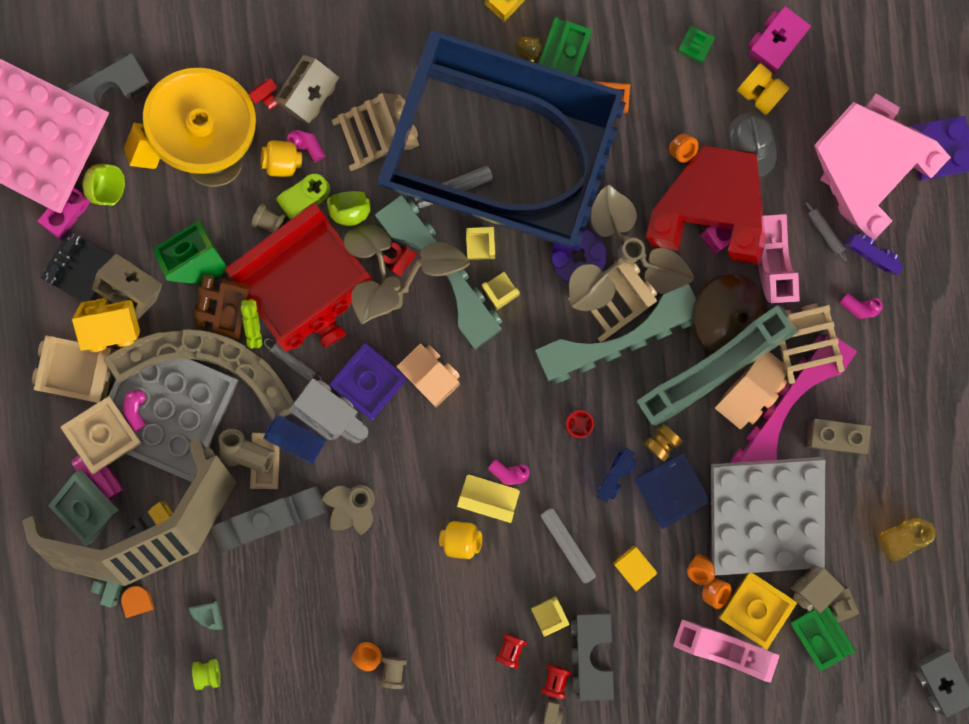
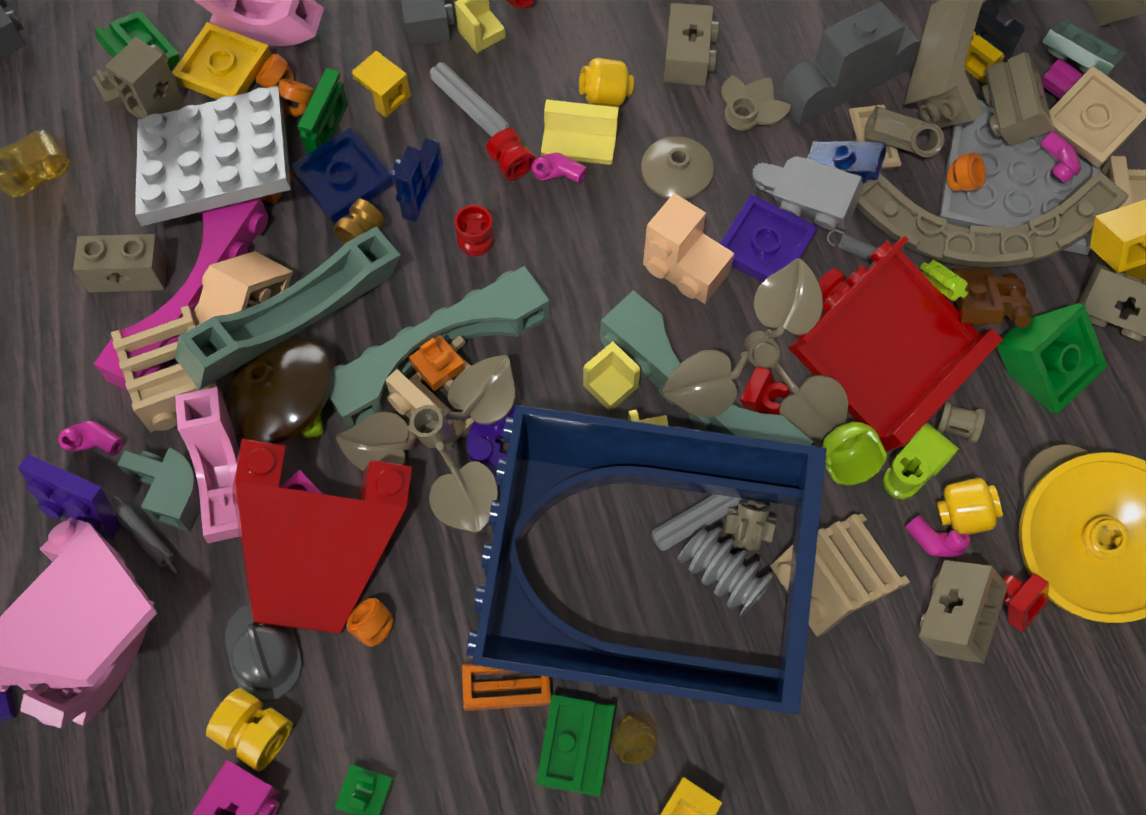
camera: 170 degrees right, 20 degrees down
(155, 458) = (1017, 100): none -> dark tan brick
(210, 405) = (969, 171): none -> orange tile
(388, 584) = (689, 44): none -> dark tan brick
(428, 167) = (750, 524): none -> dark tan gear
(433, 466) = (684, 178): none -> dark tan dish
(449, 142) = (725, 568): none -> light grey piece
(543, 486) = (508, 150): none -> red wheel
(619, 320) = (437, 362): none -> orange tile
(678, 550) = (323, 111): none -> green plate
(803, 257) = (173, 489): none -> sand green brick

